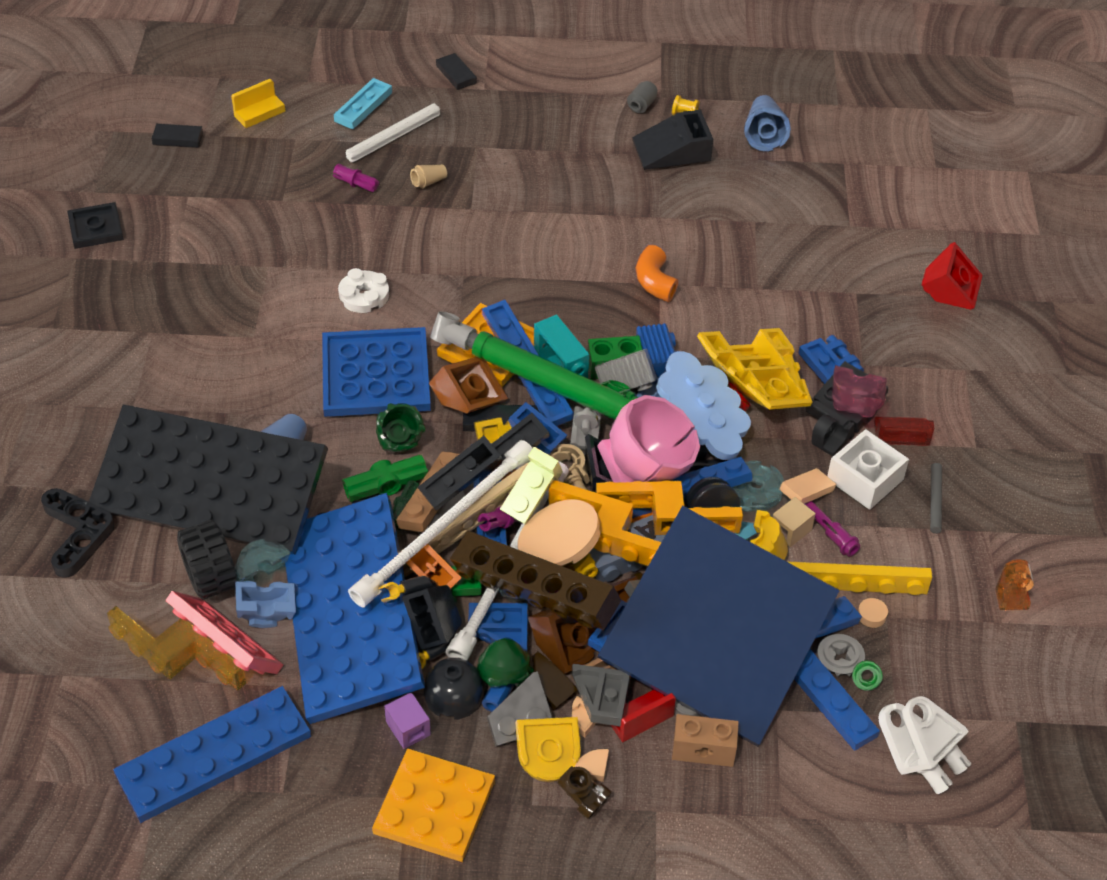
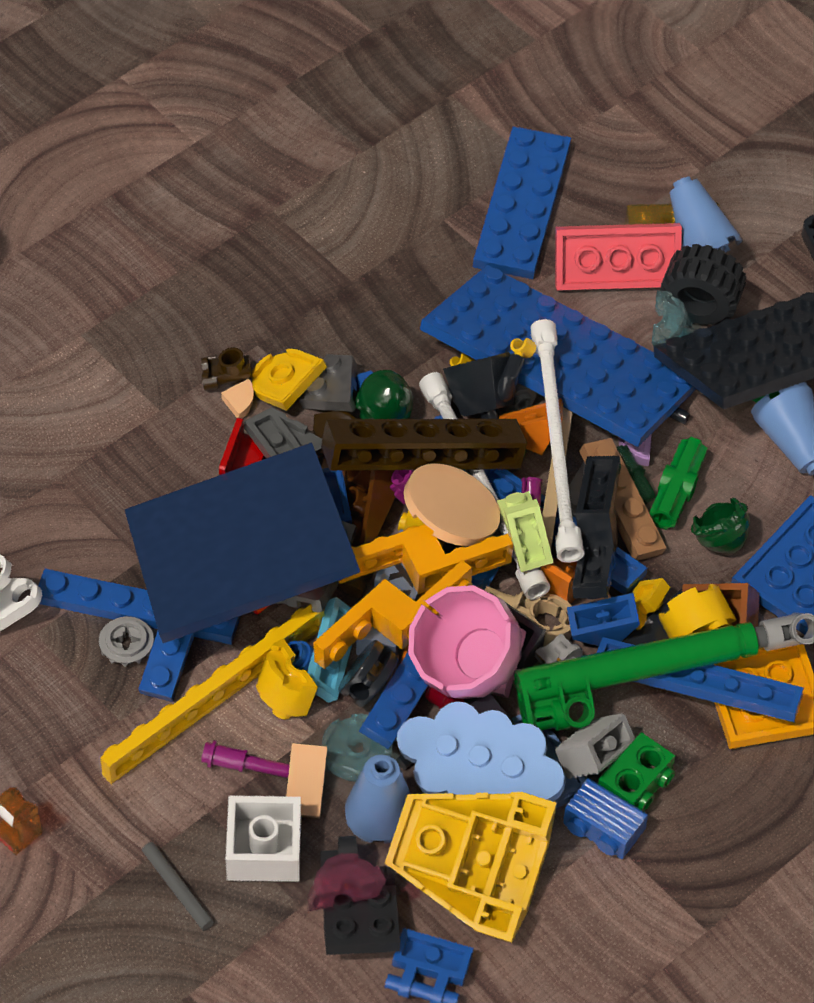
camera: 135 degrees right, 5 degrees up
(147, 591) = (700, 216): none -> medium blue cone
(265, 605) = (628, 306): medium blue cylinder -> none
(407, 720) = (408, 308): medium lavender panel -> none
(434, 805) = (326, 287): light orange plate -> none
(453, 688) = (411, 359): black cylinder -> none
(489, 382) = (696, 612): none -> yellow cylinder
(560, 346) = (673, 711): teal window -> none
(650, 275) = (719, 912): orange cylinder -> none
(705, 740) = (168, 469): medium nougat brick -> none
(777, 438) = (377, 800): none -> medium blue cone
(796, 519) = (283, 728): tan panel -> none
(867, 684) = (85, 635): green plate -> none
(873, 612) = (133, 707): light nougat tile -> none
(904, 430) = (278, 941): clear red panel -> none

